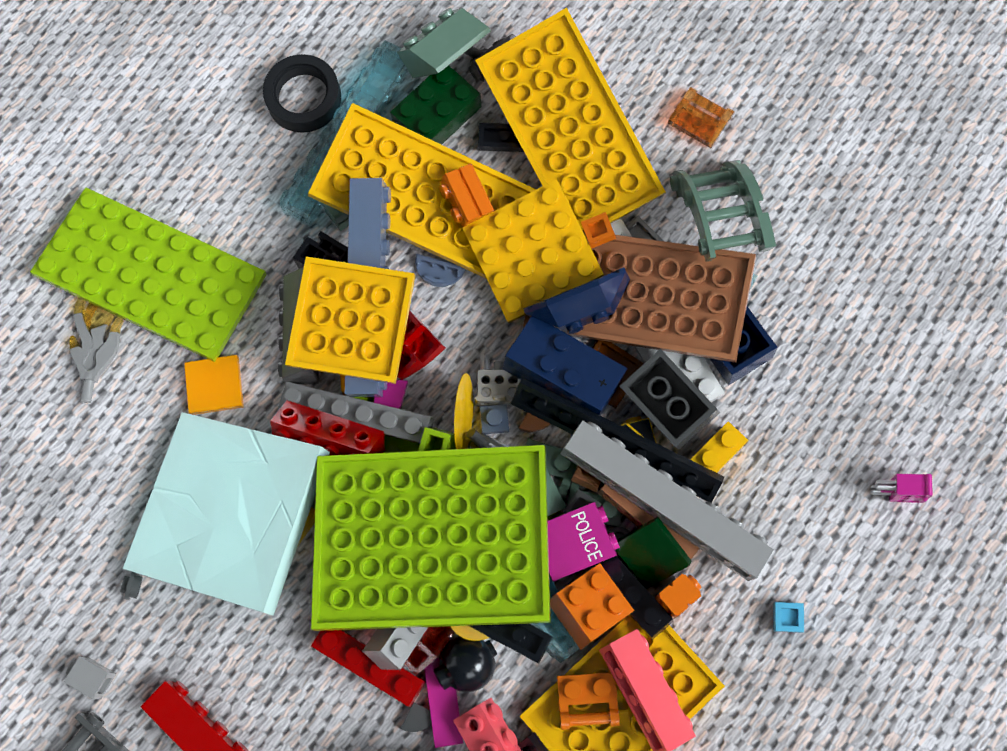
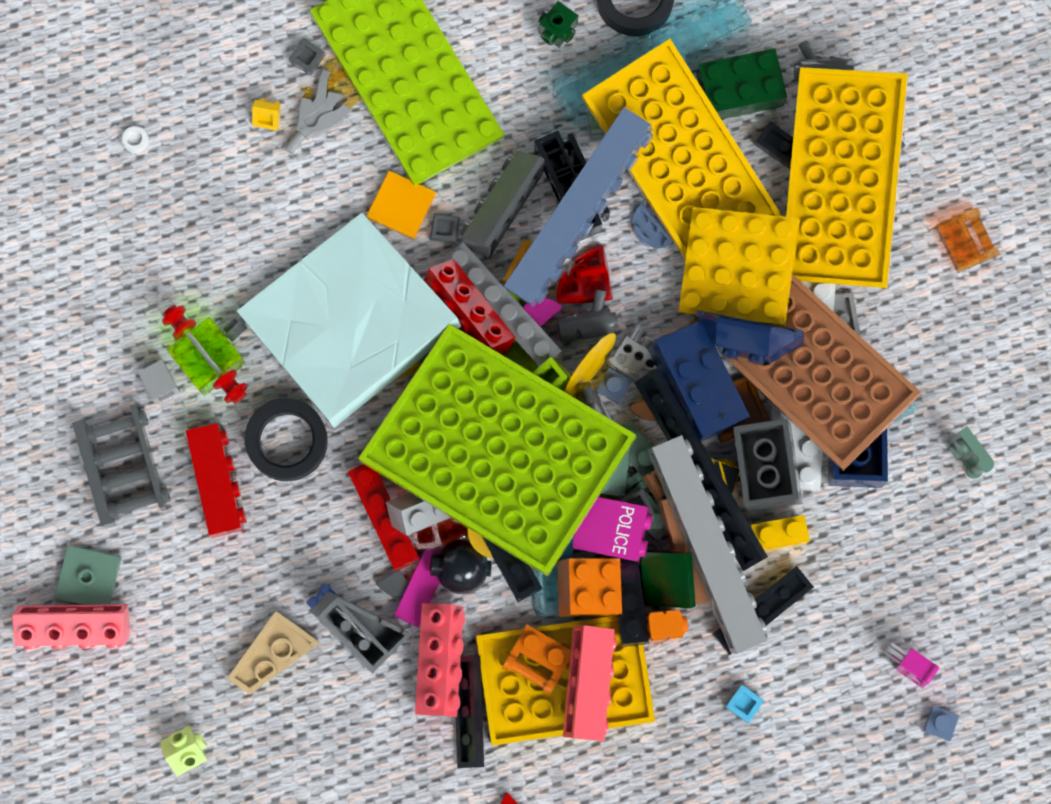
camera: 25 degrees right, 5 degrees up
(46, 382) = (266, 114): none -> yellow tile
(53, 312) = (307, 57): none -> dark grey plate
(116, 626) = (205, 355): none -> clear neon green brick
(204, 654) = (263, 416): none -> black tyre
(252, 154) = (558, 25): none -> dark green brick
(264, 380) = (445, 228): none -> dark grey tile
(350, 320) = (547, 228): yellow plate -> none
(441, 42) = (784, 30): sand green slope -> none
(441, 379) = (591, 324): none -> dark grey piece
(465, 195) = (714, 181): orange brick -> none
(598, 230) = (805, 284): orange plate -> none
(739, 182) = (953, 330): sand green fence -> none
(752, 510) = (775, 600): none -> black plate
(817, 279) = (972, 453): none -> sand green plate
(959, 522) = (941, 723): none -> sand blue plate

